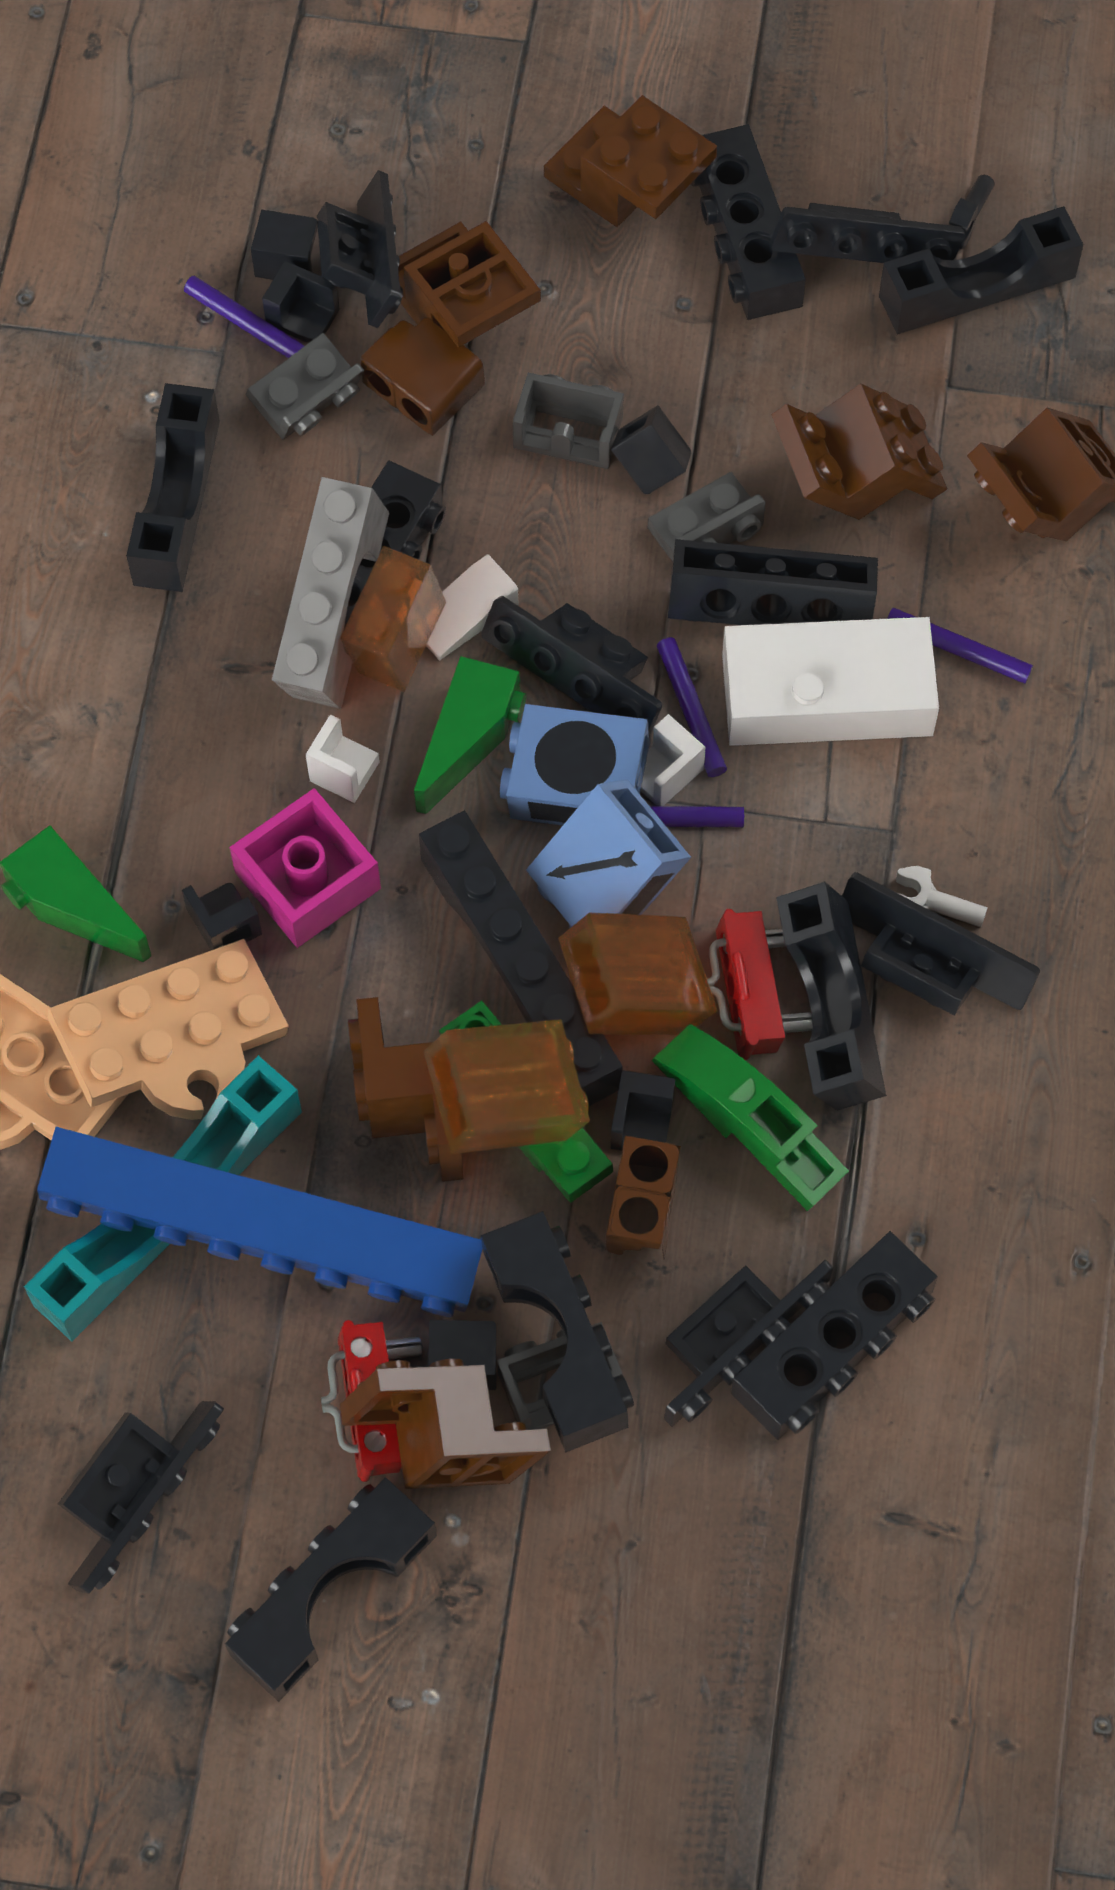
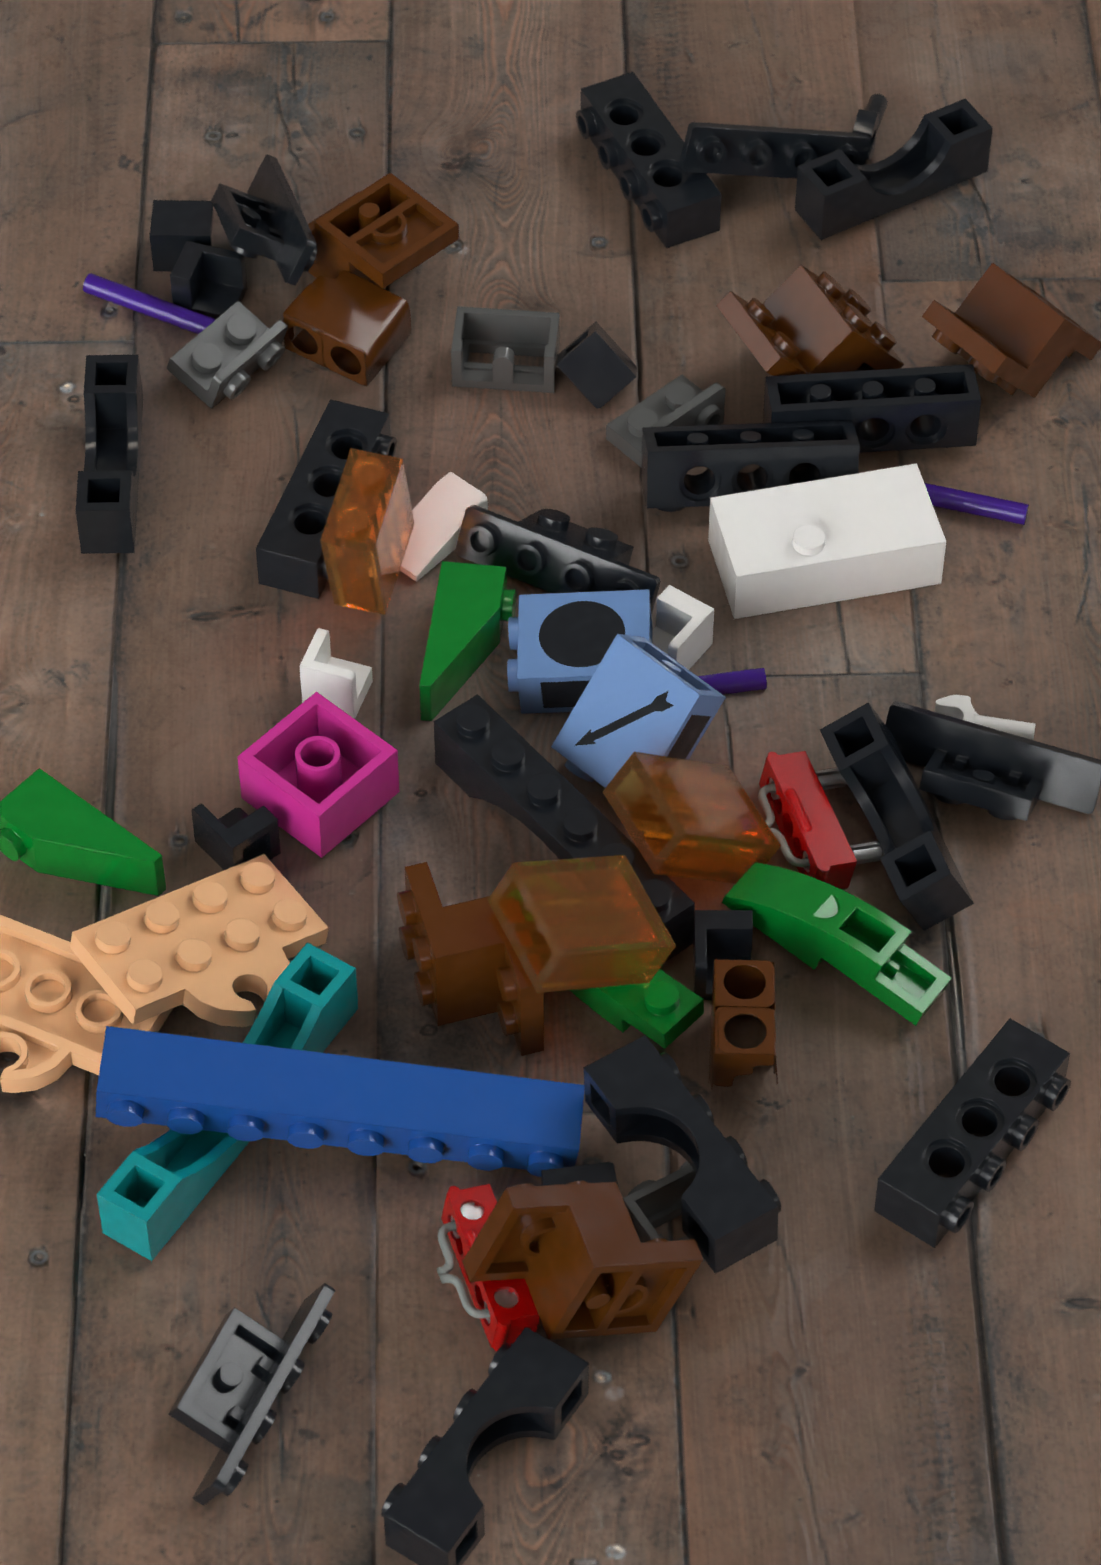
camera: 10 degrees left, 15 degrees down
(344, 528) = (301, 466): light grey arch -> none
(630, 161) = (520, 118): reddish brown bracket -> none
(691, 705) = (685, 582): dark purple bar -> none
(729, 1328) = (862, 1143): black bracket -> none
(910, 542) = (886, 406): none -> black brick

